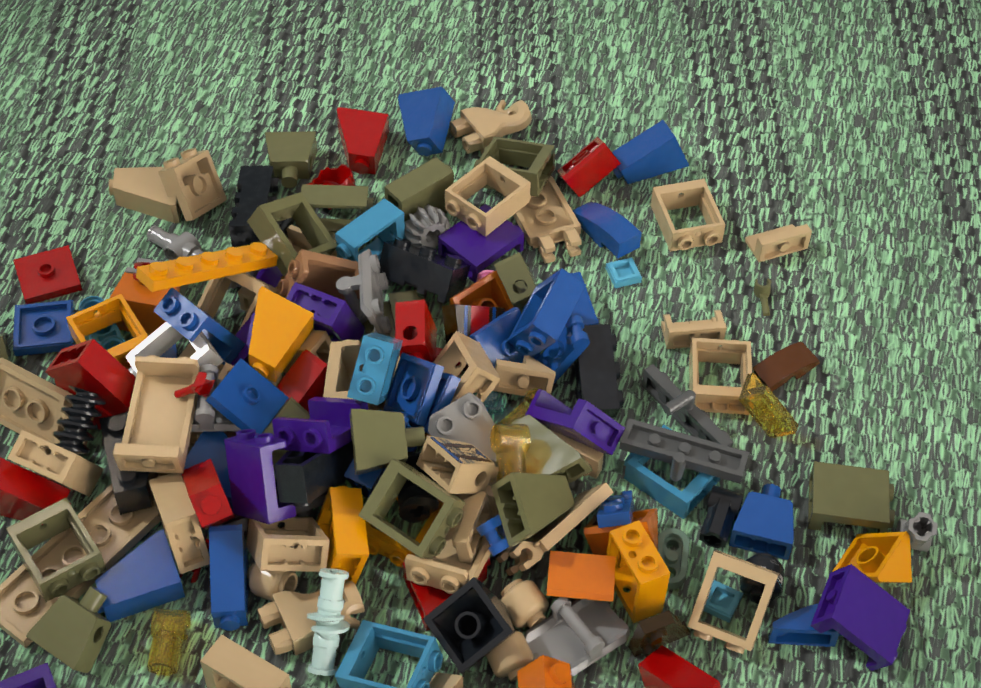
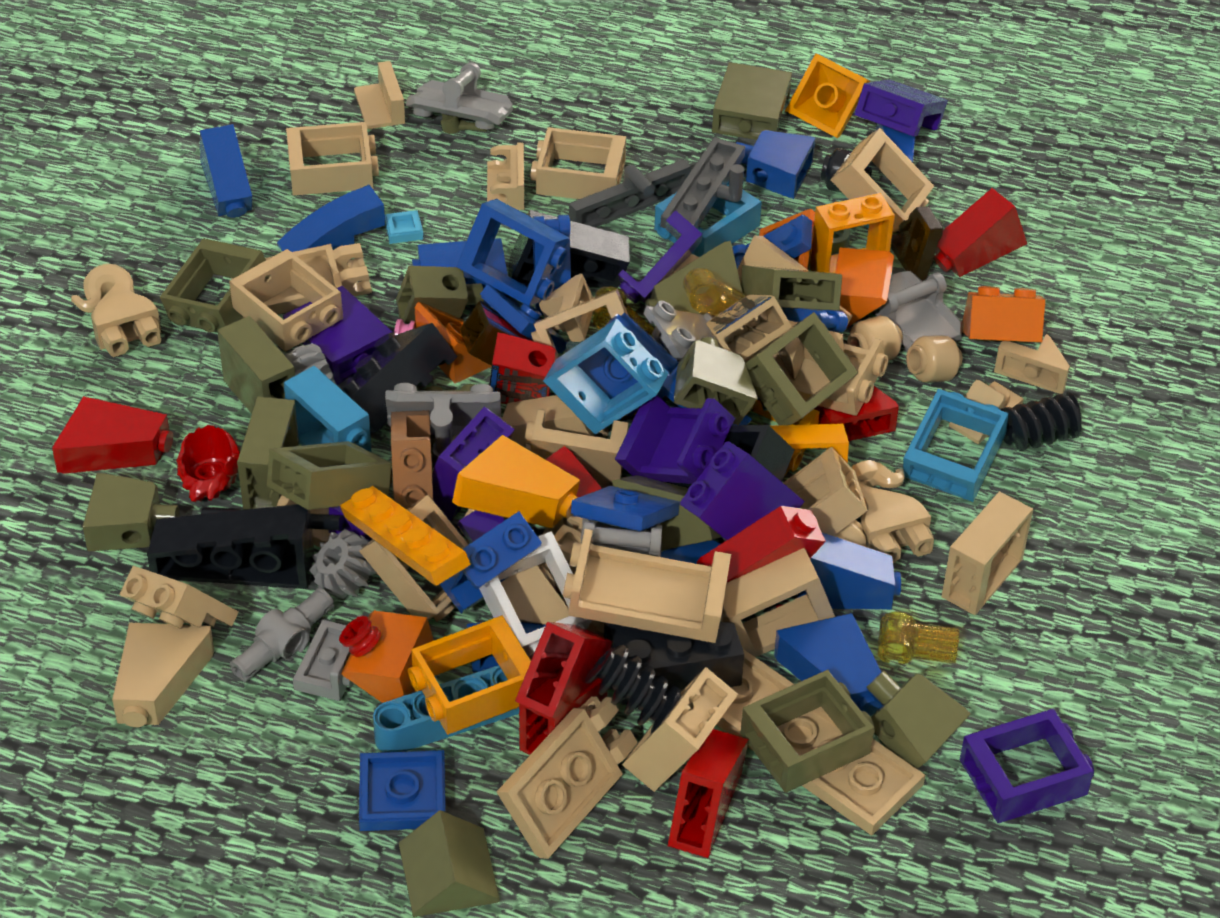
camera: 85 degrees left, 5 degrees down
(47, 275) = (293, 797): red plate -> none
(200, 386) = (623, 527): red hand -> none
(328, 622) = (914, 475): light aqua piece -> none
(426, 119) = (100, 365): blue slope -> none
(470, 624) = (920, 365): black slope -> none
(588, 167) = (231, 215): red slope -> none
(721, 512) = (771, 192): black piece -> none
(766, 408) = (646, 129): clear yellow panel -> none
(782, 288) = (461, 99): none -> light grey shield
(785, 364) = (565, 113): reddish brown slope -> none
(920, 529) = (802, 53): light grey piece -> none

